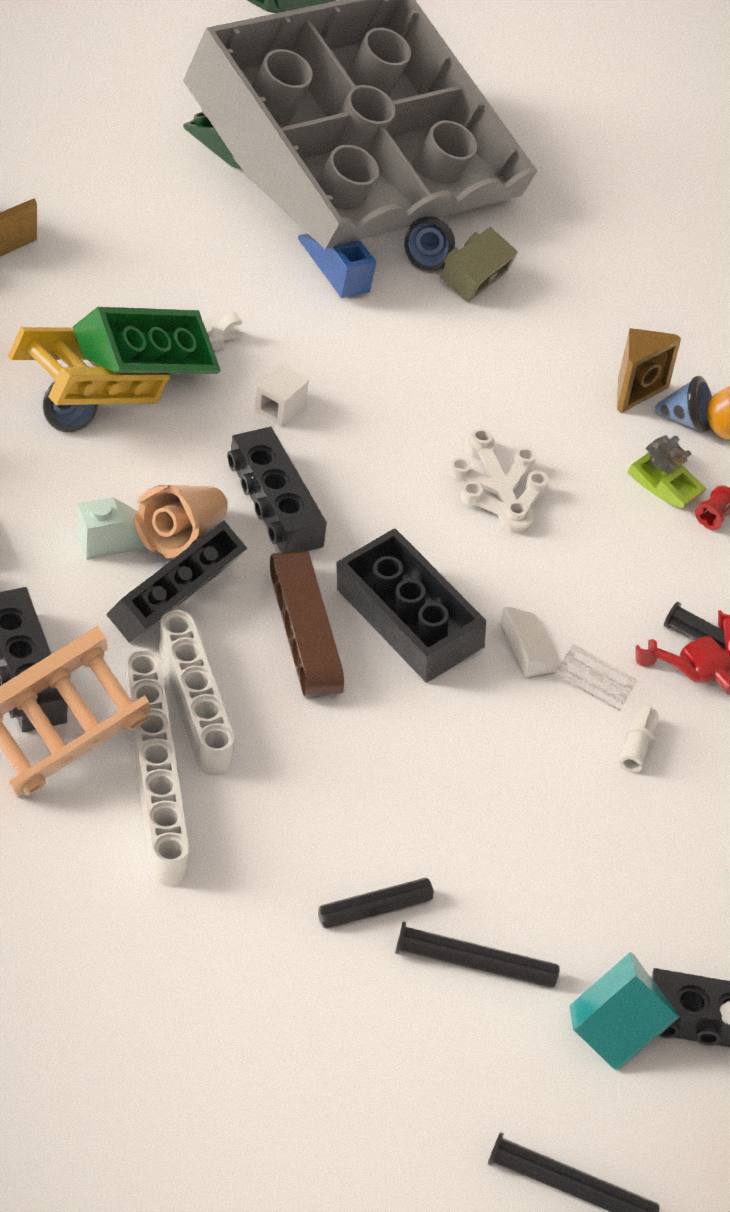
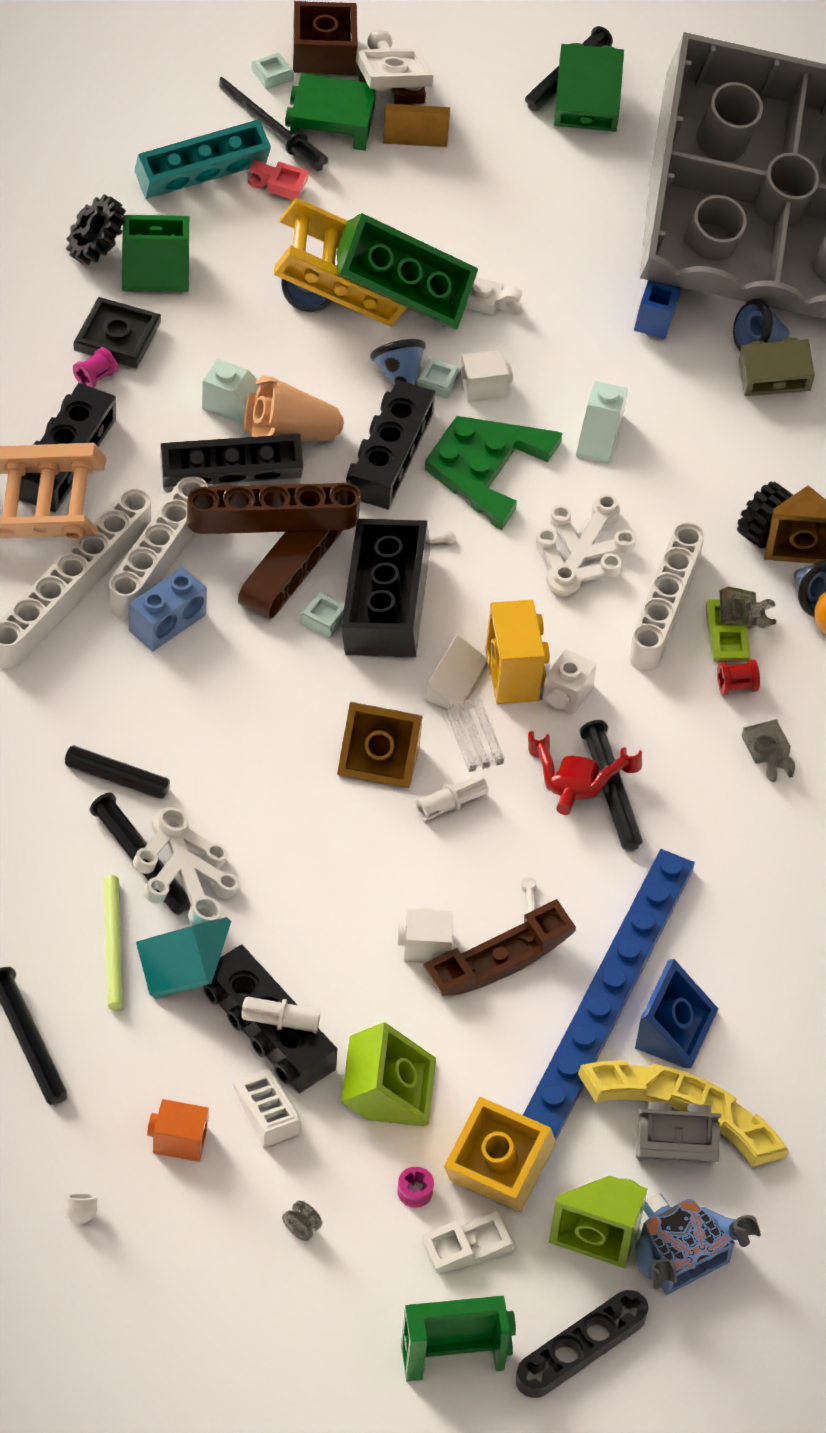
camera: 45 degrees right, 5 degrees up
(64, 95) = (548, 87): none -> black axle
(109, 130) = (589, 87): none -> green panel
(210, 424) = (400, 359): none -> medium blue hat
(242, 418) = (438, 377): none -> light aqua tile
(265, 737) = (167, 609): none -> medium blue brick
(269, 595) = (273, 508): none -> reddish brown beam
(340, 465) = (475, 453): none -> green wing
(377, 661) = (323, 614): none -> light aqua tile
(406, 377) = (602, 422): none -> light aqua slope
(485, 916) = (172, 828): none -> white plant
(538, 1048) = (113, 942): none -> yellowish green bar
(549, 733) = (380, 744): none -> pearl gold slope
(565, 589) = (516, 651): none -> yellow brick
(603, 480) = (666, 596): none -> white beam
(605, 373) = (757, 517): none -> black tyre
(616, 589) = (569, 681): none -> white brick

